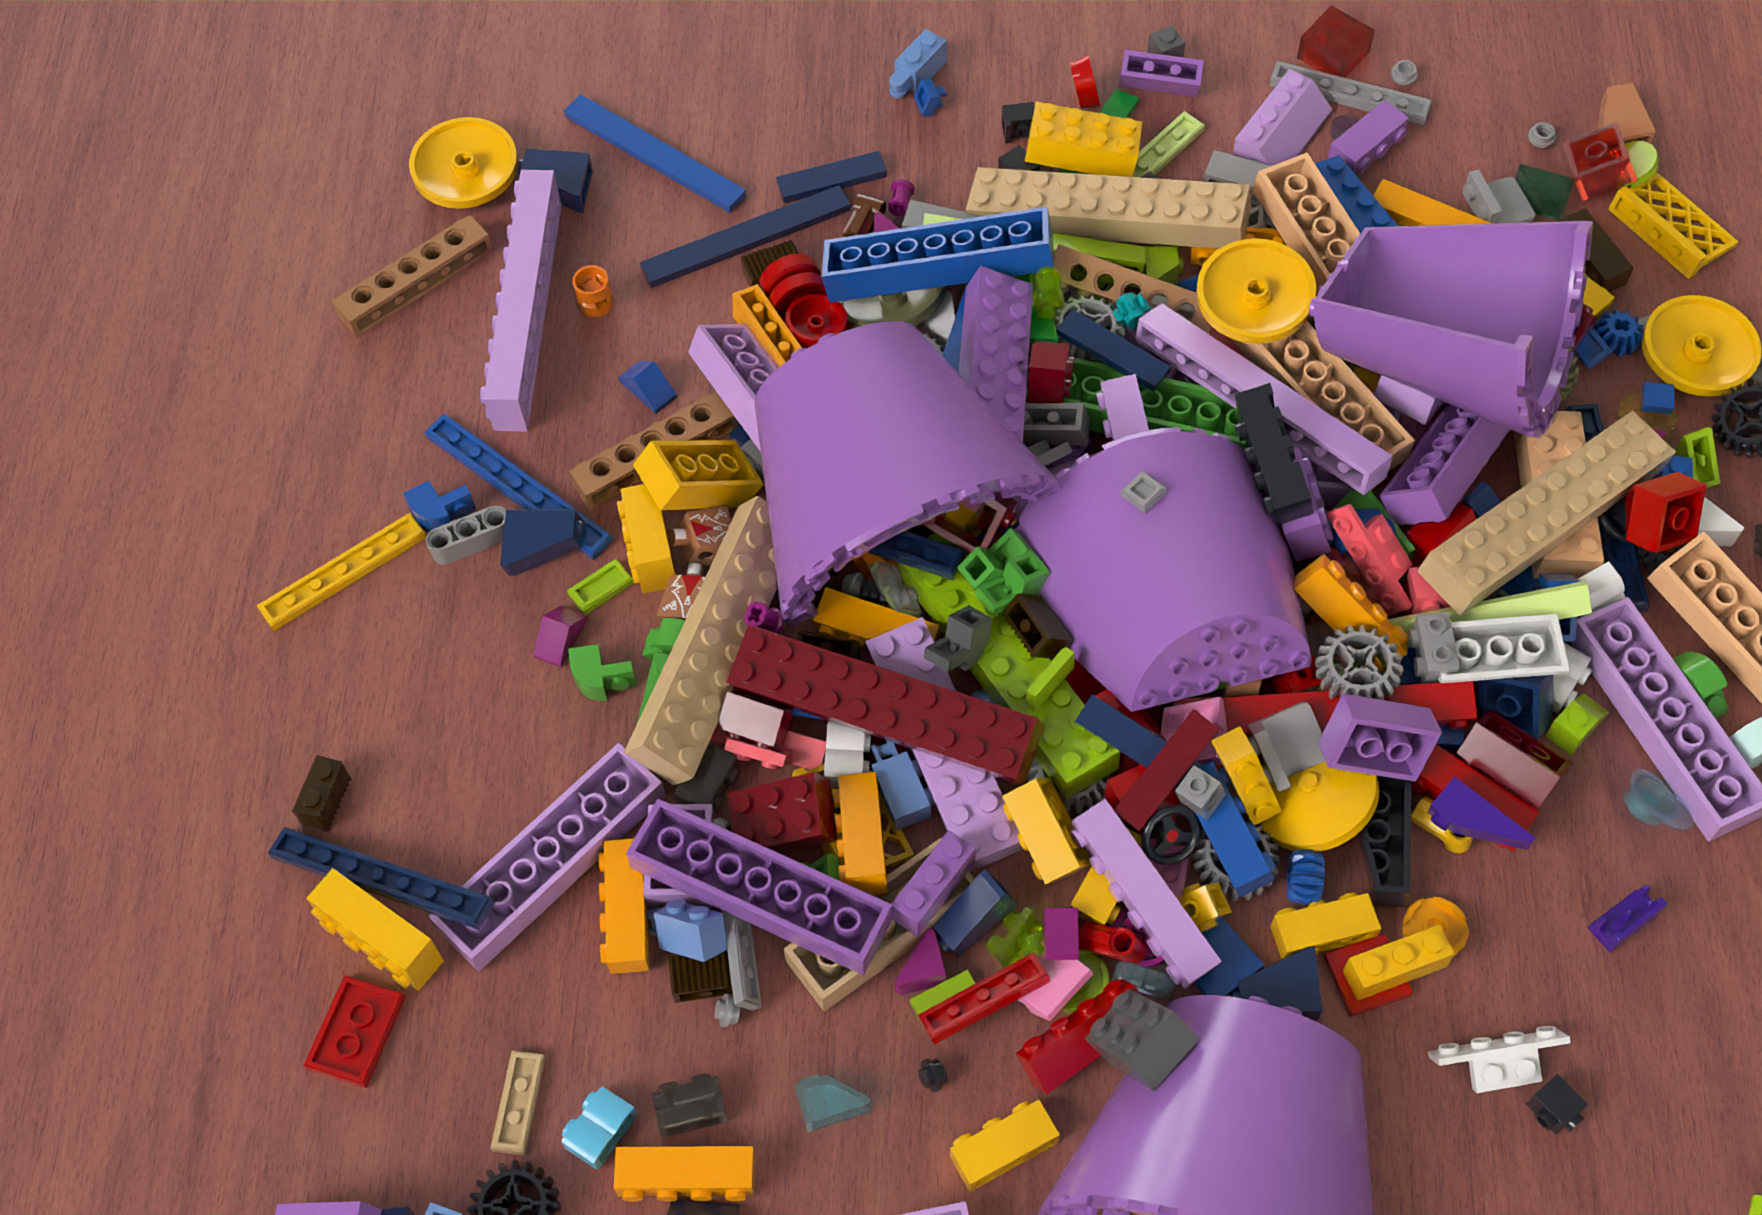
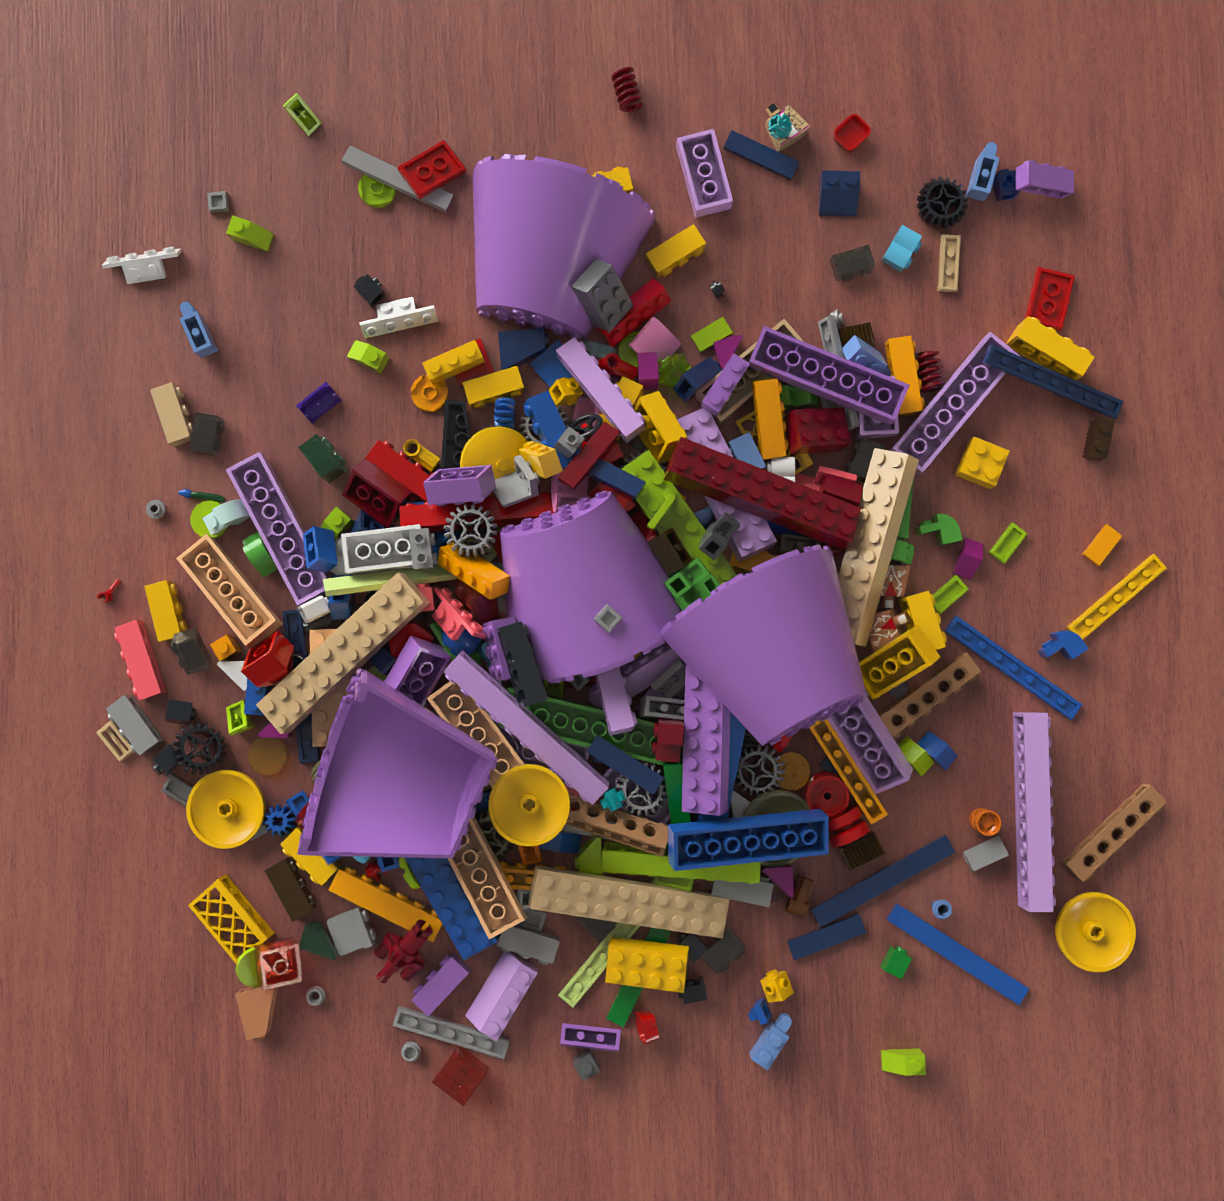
camera: 175 degrees right, 25 degrees up
(348, 644) = (1102, 545): none -> light orange tile
(455, 533) = (1047, 624): light grey beam -> none
(494, 654) = (1007, 543): none -> lime tile
(517, 766) = (982, 462): none -> yellow brick
(539, 537) = (993, 623): dark blue slope -> none
(571, 172) = (1022, 926): dark blue slope -> none
(578, 916) = (929, 371): none -> dark red piece
(599, 252) = (985, 854): none -> light grey hinge
(671, 194) = (944, 911): none -> medium blue cone
(684, 1172) = (851, 224): light orange brick -> none
(685, 379) = (915, 755): none -> lime slope
(739, 142) = (896, 961): none -> green brick
(742, 40) = (903, 1061): none -> lime slope
(762, 617) = (843, 555): magenta bush -> none
(828, 1101) = (775, 270): clear light blue slope -> none
(901, 195) = (775, 917): magenta bush -> none
(905, 120) = (776, 986): none -> yellow brick
(963, 164) = (723, 951): none -> clear smoke brick
(984, 998) = (690, 329): red tile -> none
(1047, 291) = (671, 807): clear neon green hips -> none
(1340, 125) = (457, 998): clear purple tile -> none
(1425, 167) = (403, 952): none -> dark red wheel
(1473, 816) = (406, 448): dark purple slope -> none
(1549, 990) = (368, 356): none -> lime slope
(1600, 670) = (320, 549): none -> blue brick
(1610, 818) = (324, 460): none -> clear green brick
(1653, 802) = (293, 472): clear light blue piece -> none
(1657, 397) = (259, 766): blue tile -> none
(1739, 549) = (226, 647): none -> light orange brick

